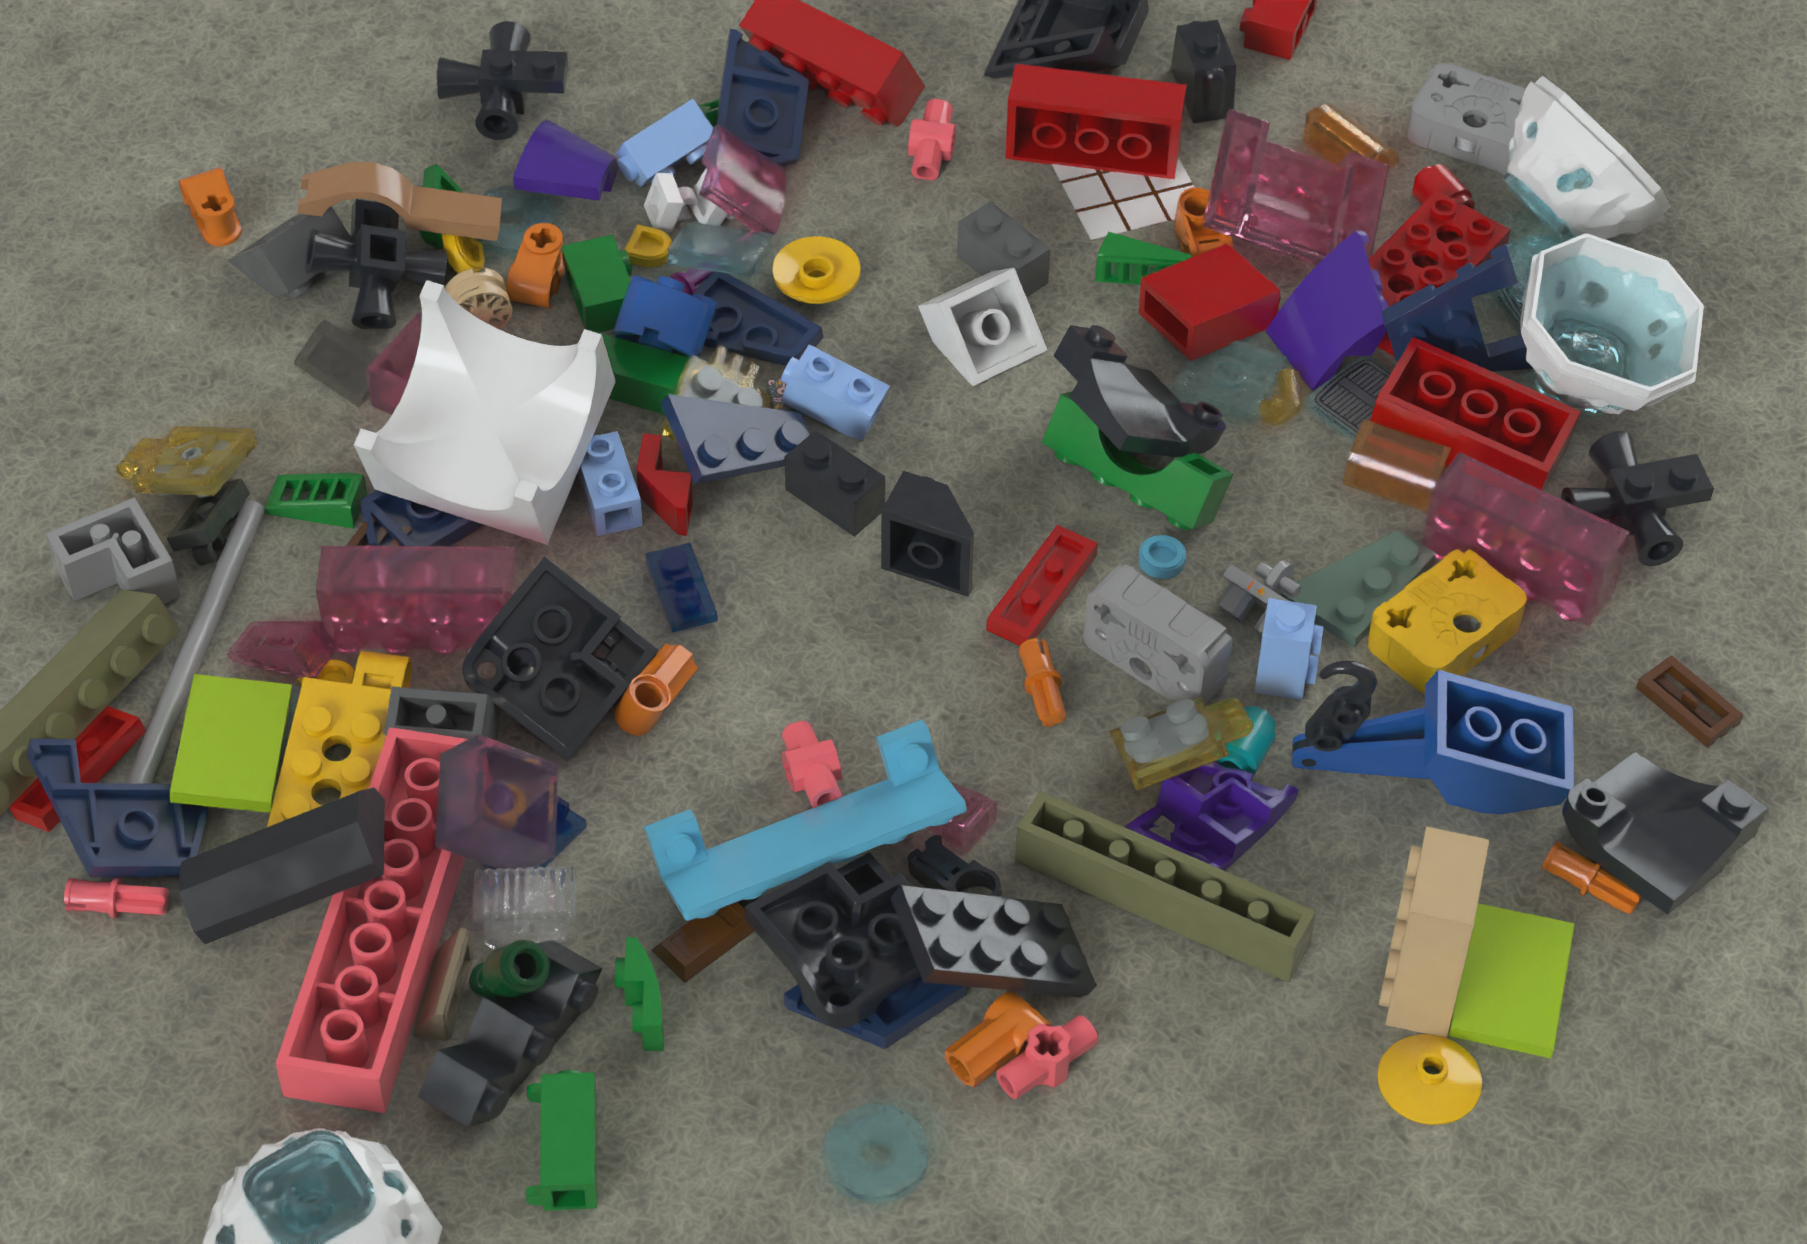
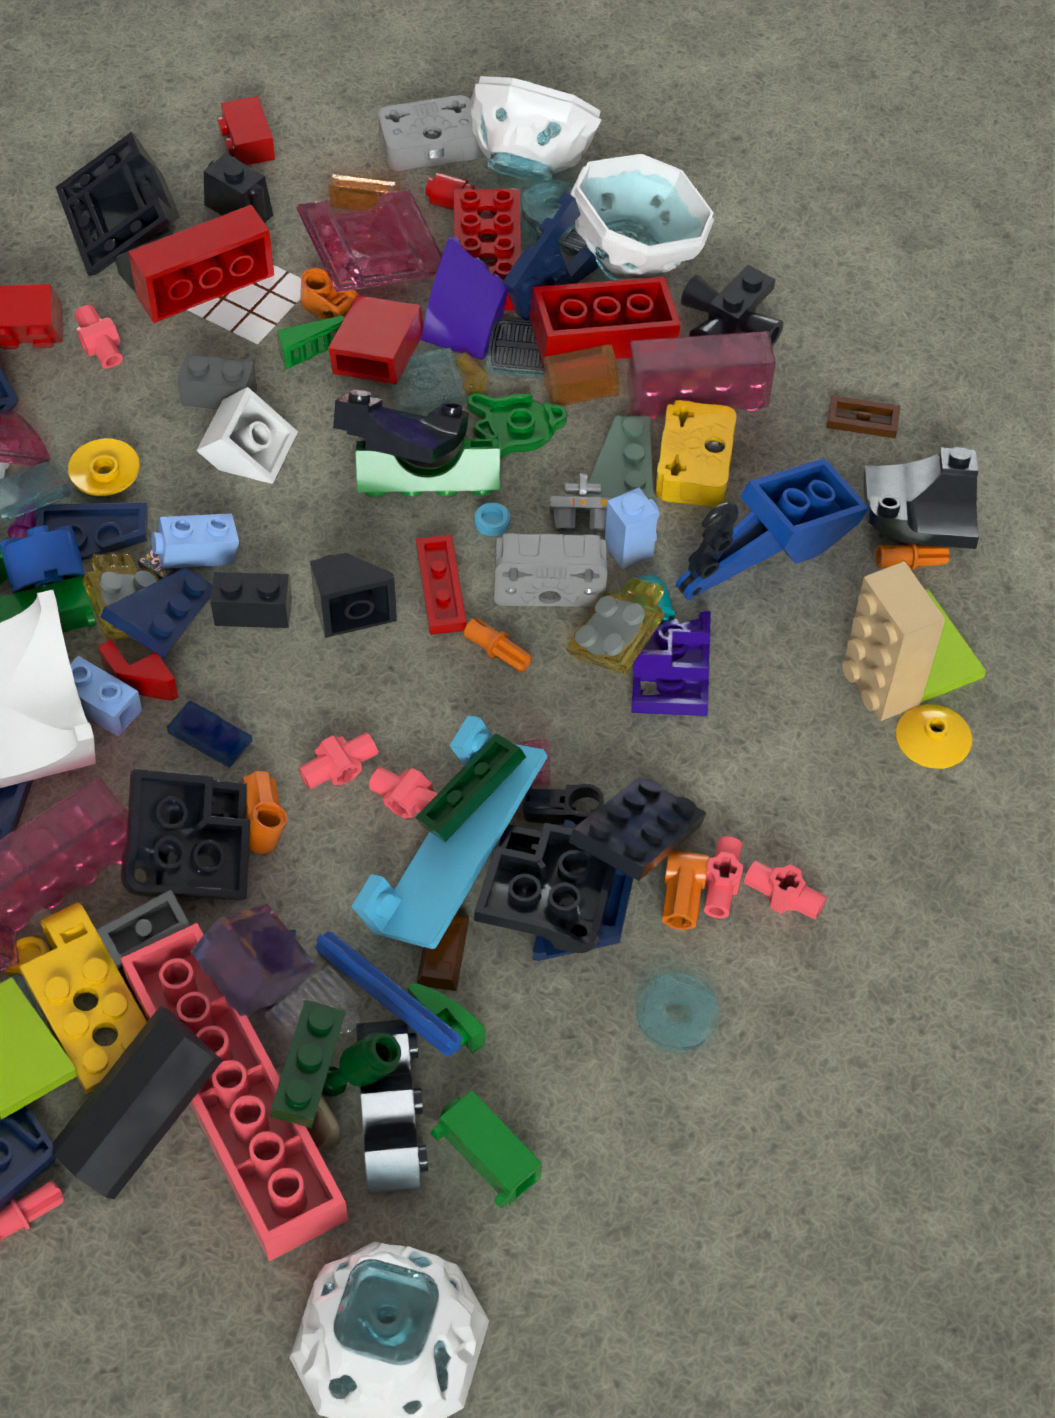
camera: 40 degrees left, 5 degrees up
(462, 935) = (307, 1064): none -> dark green plate
(605, 932) = (389, 994): none -> blue axle
(774, 689) = (337, 760): none -> coral axle
(862, 792) = (470, 787): none -> dark green plate
(1100, 1113) = (797, 895): none -> coral axle
(1164, 886) = (694, 722): olive brick -> none
(1283, 474) = (515, 421): none -> green tile

